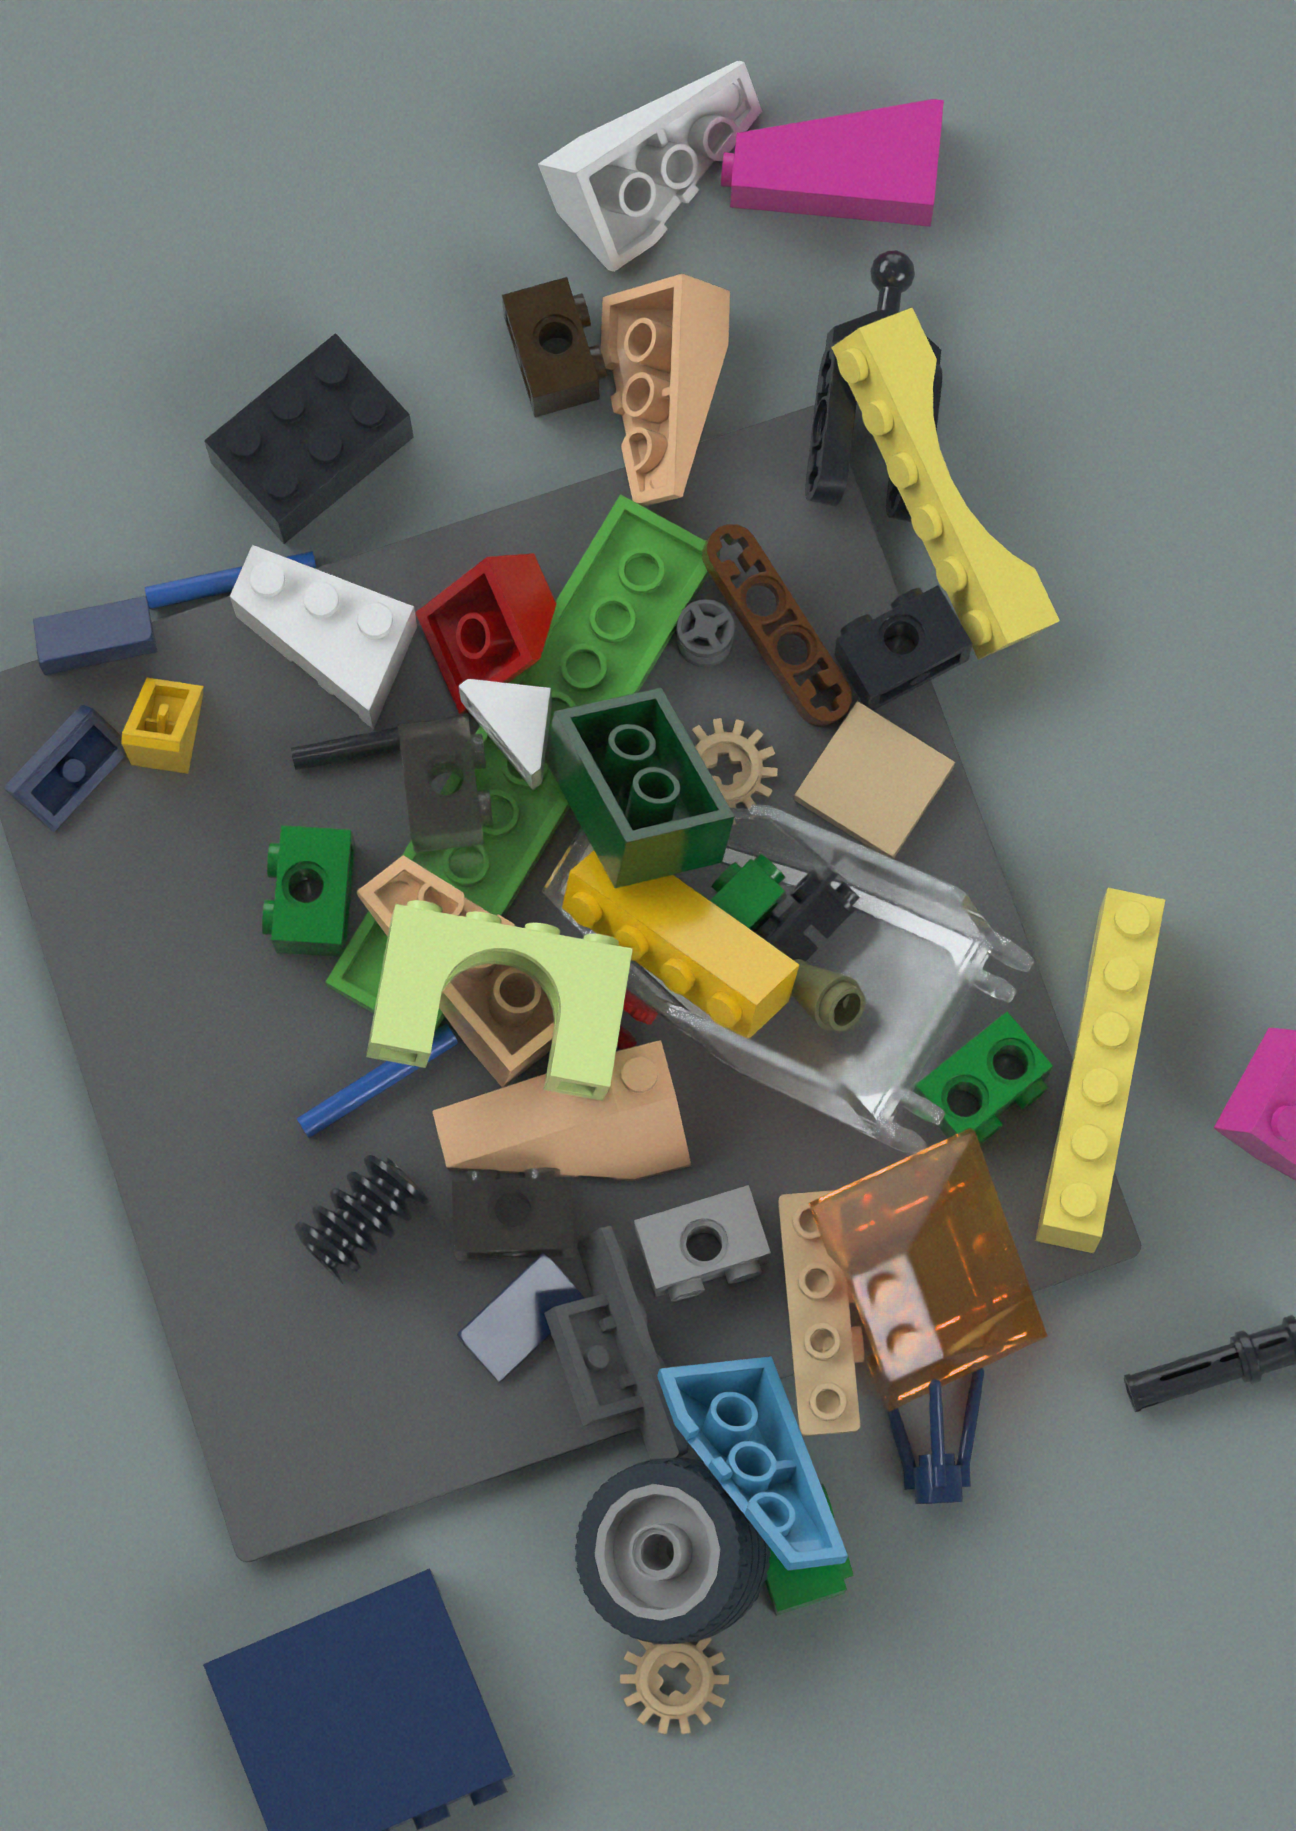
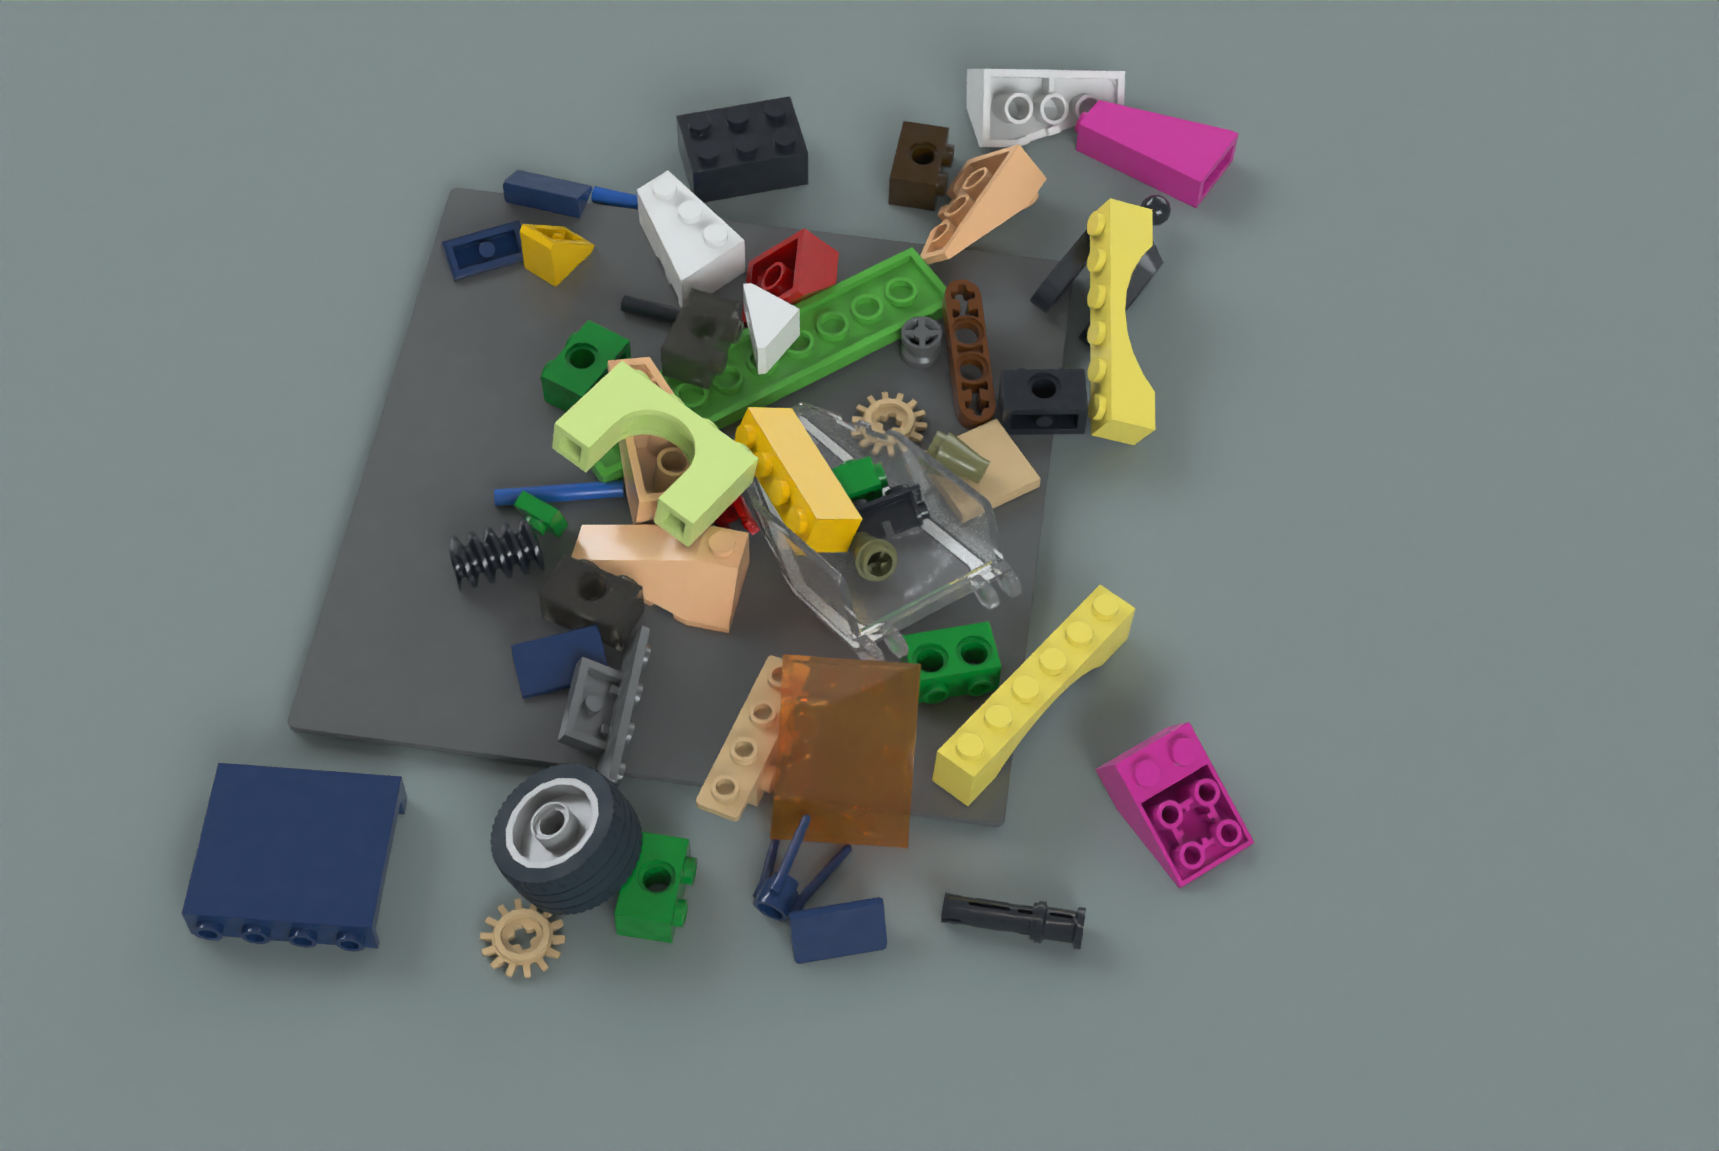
camera: 25 degrees right, 20 degrees down
(380, 1133) = (541, 515): none -> green plate
(638, 787) = (820, 383): dark green brick -> none
(727, 1217) = (689, 654): light grey brick -> none
(753, 1446) = (655, 793): dark azure wedge -> none
(844, 795) = (958, 457): none -> olive cone
(1029, 1488) = (838, 930): none -> dark blue slope

